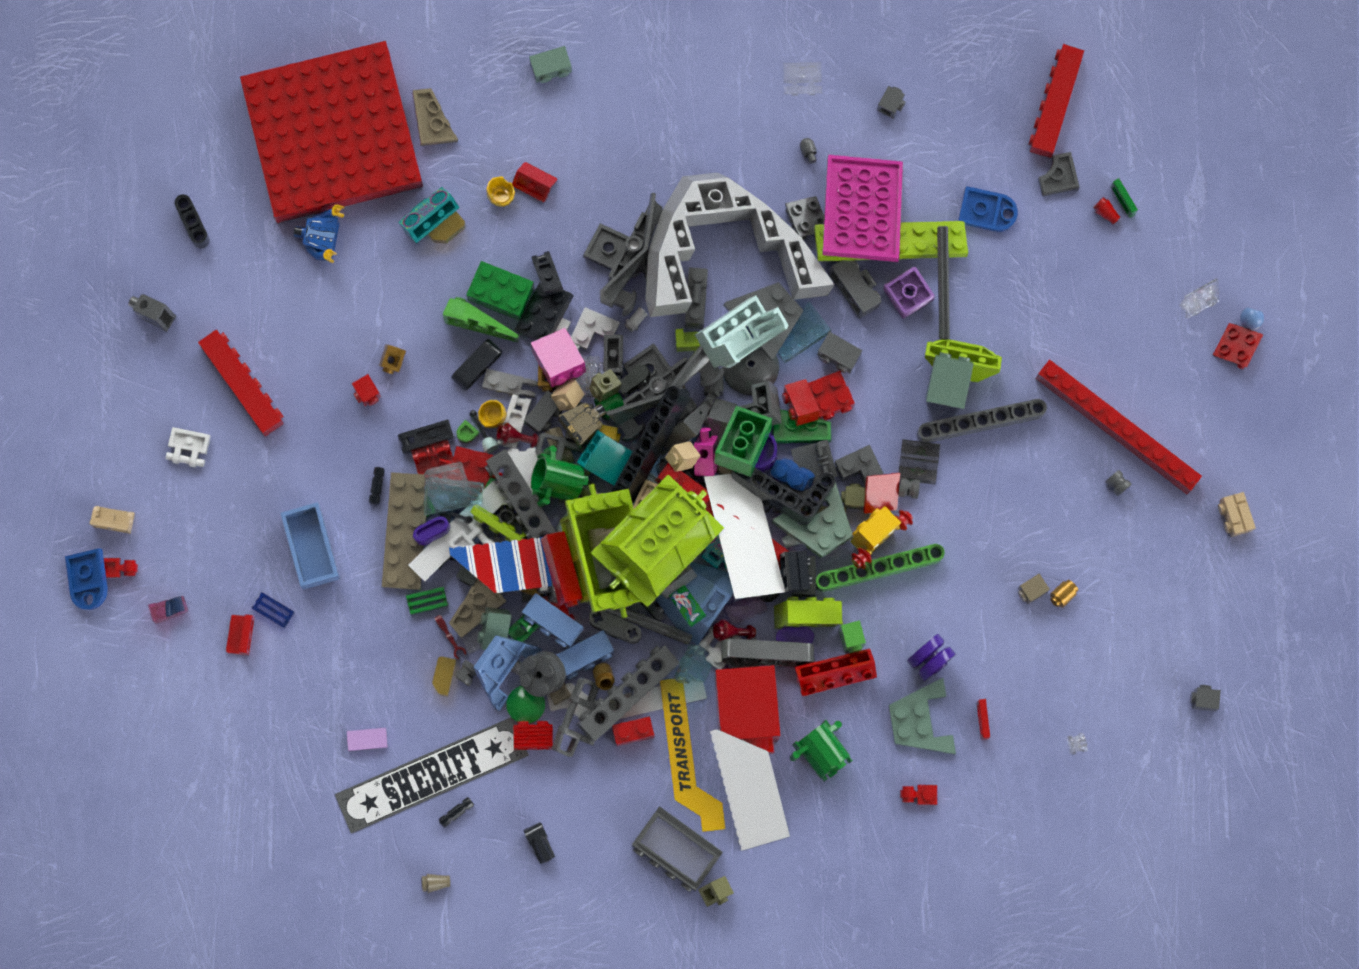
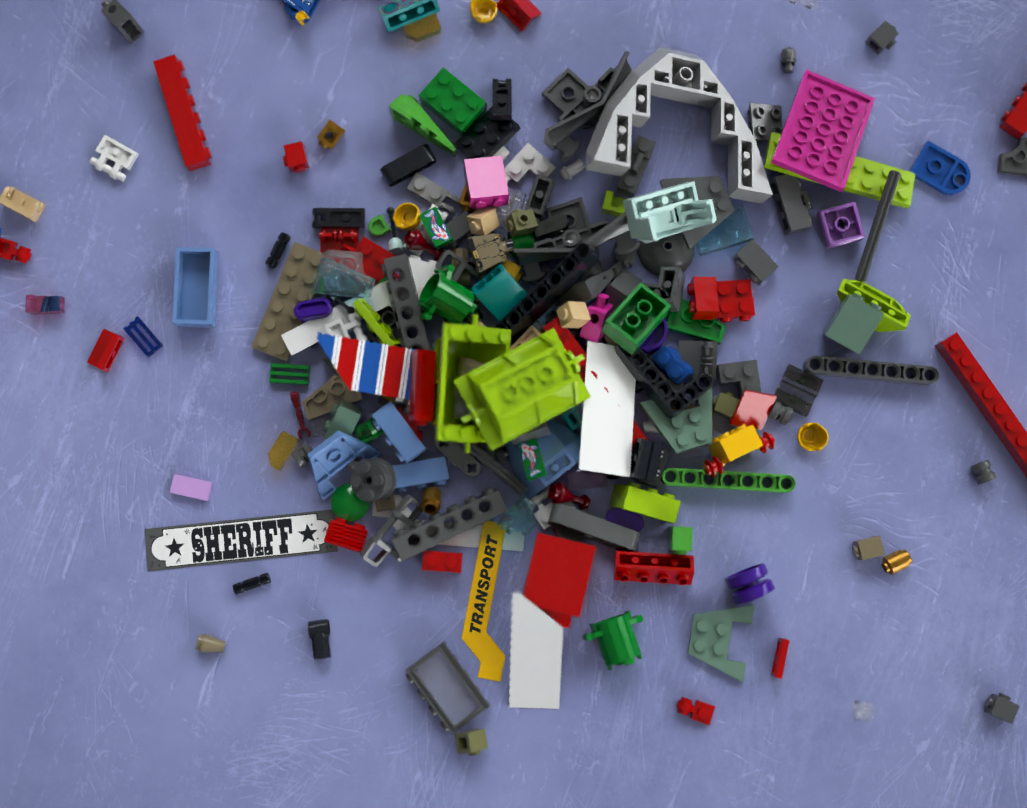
camera: 20 degrees right, 5 degrees up
(524, 416) = (436, 227): none -> tile
(946, 501) = (812, 436): none -> yellow hair

